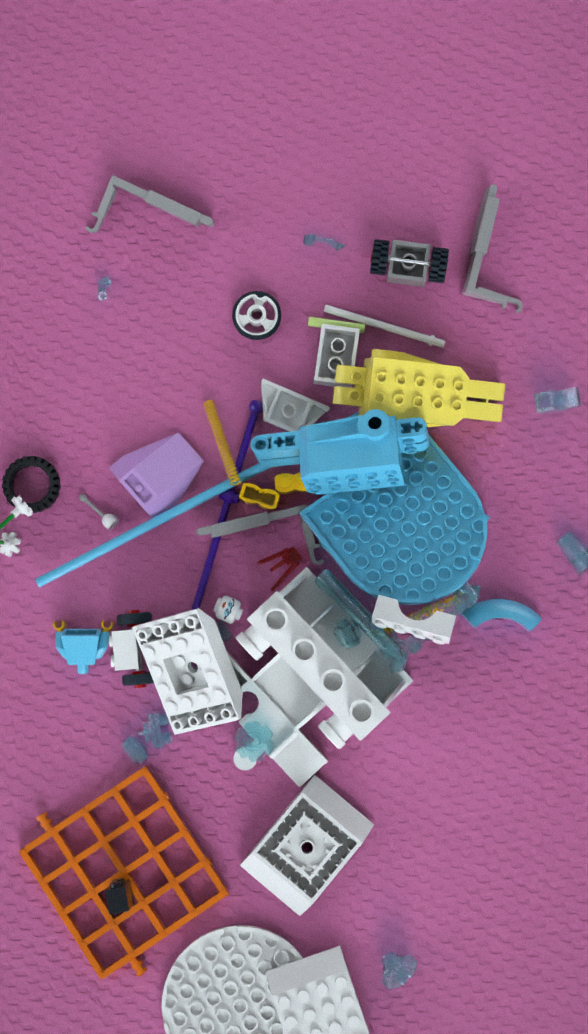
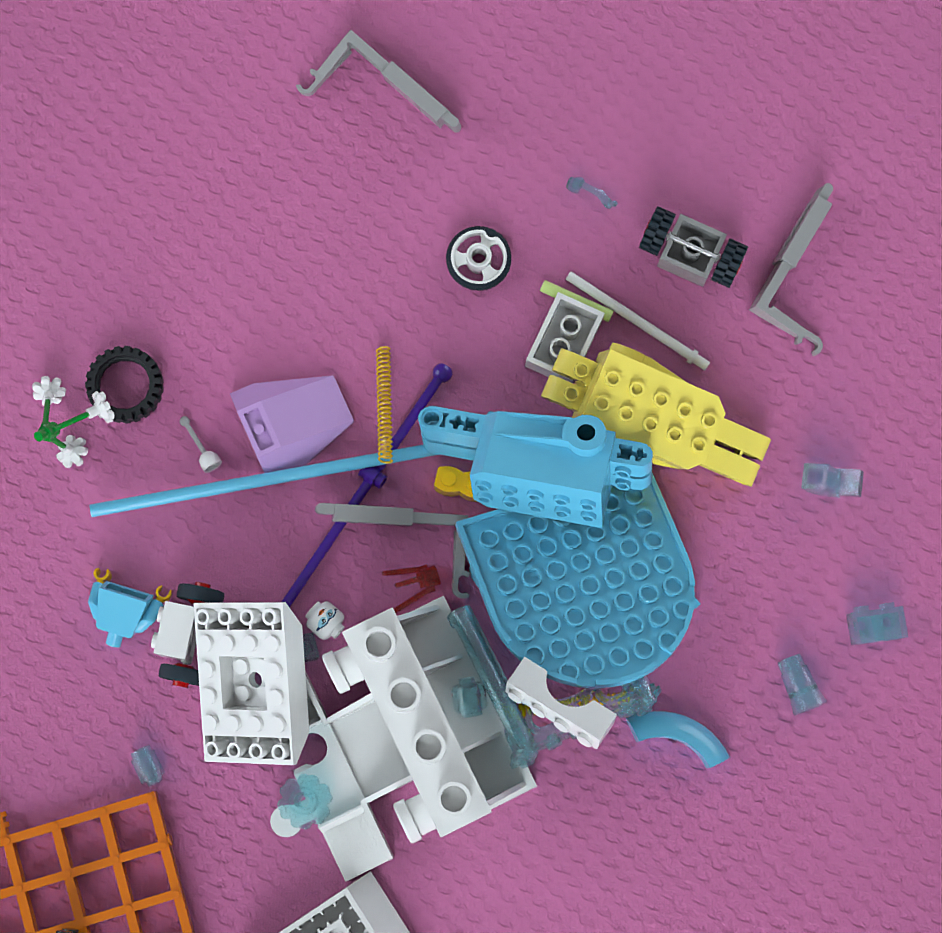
camera: 10 degrees right, 5 degrees down
(101, 288) = (293, 165): clear light blue arm -> none
(158, 738) = (182, 761): clear light blue hips -> none
(254, 495) = (406, 485): yellow brick -> none
(287, 408) = (481, 386): white wing -> none

